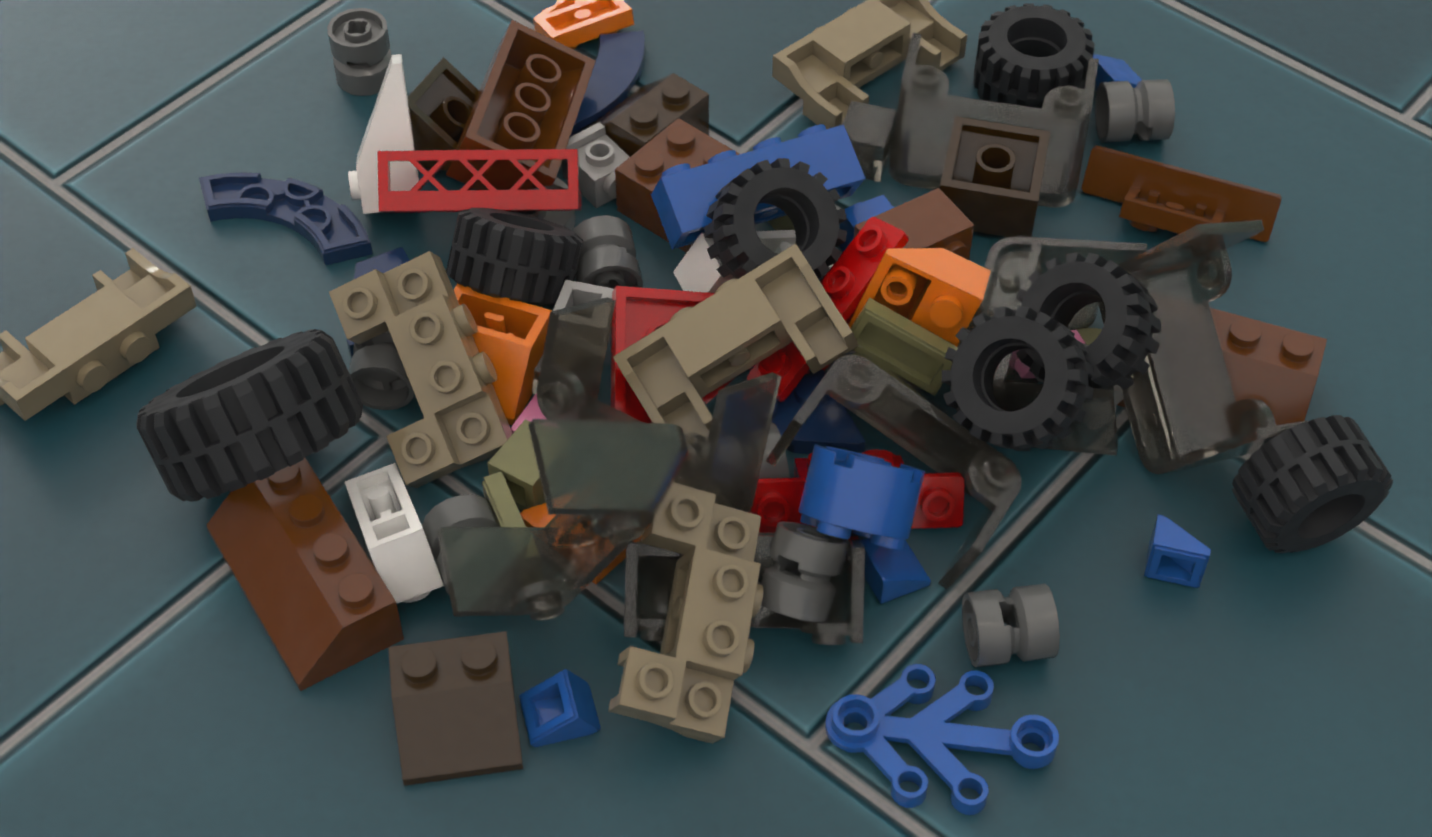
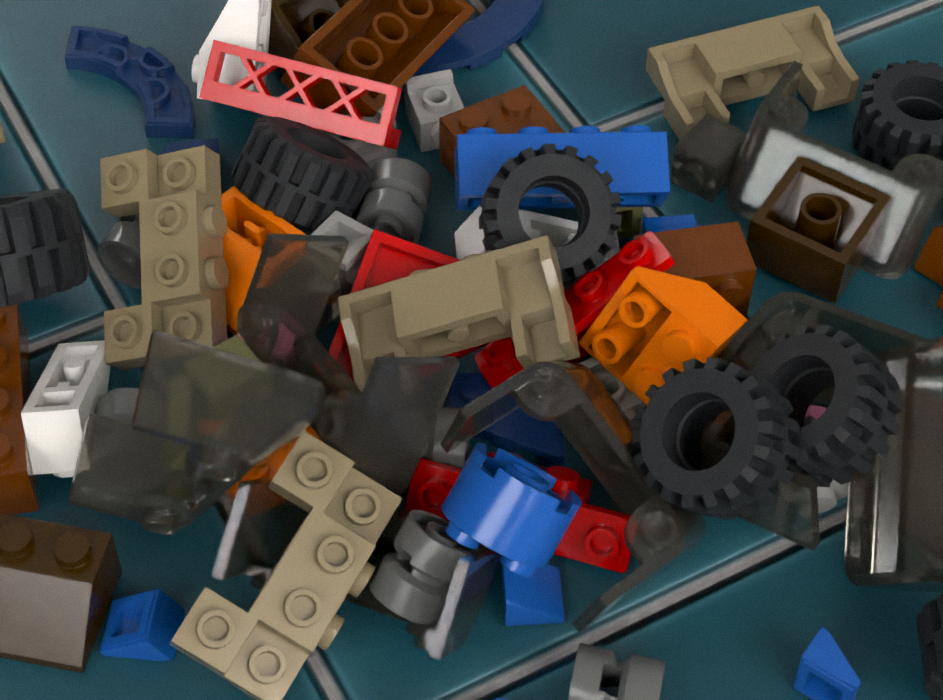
camera: 20 degrees right, 0 degrees up
(653, 109) = (527, 65): dark brown slope -> none
(902, 346) = (619, 362): olive tile -> none

